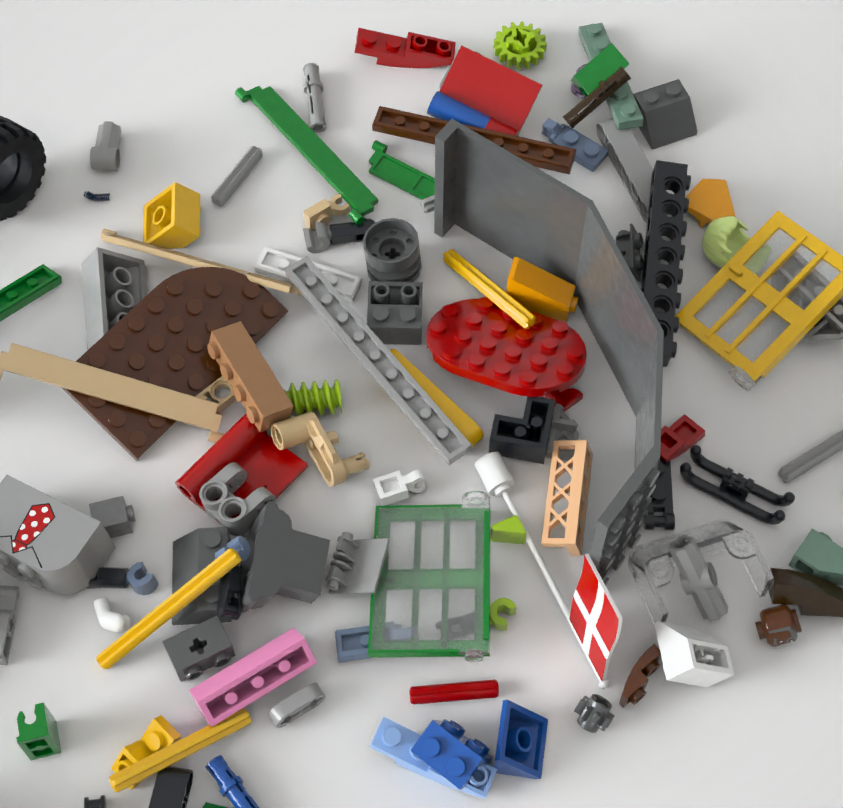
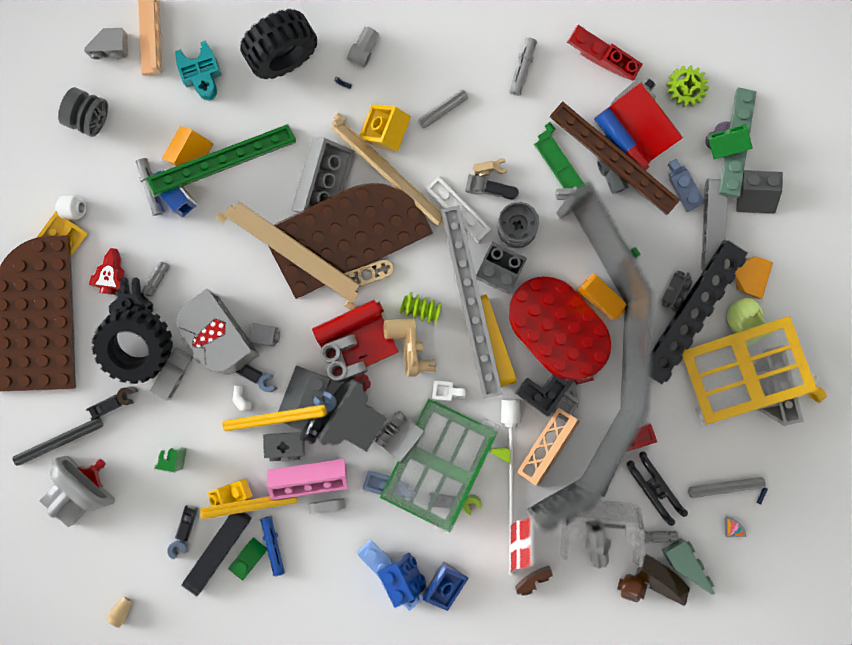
camera: 25 degrees right, 25 degrees up
(249, 376) = (385, 280): medium nougat brick -> none
(313, 149) = (502, 110): green piece -> none
(454, 691) = (421, 538): red axle -> none
(489, 289) = (569, 279): yellow axle -> none
(594, 713) = (495, 591): dark grey gear -> none
(620, 77) = (725, 162): dark brown pin -> none
(692, 655) = (570, 585): white slope -> none
(781, 545) = (661, 537): none -> light grey axle

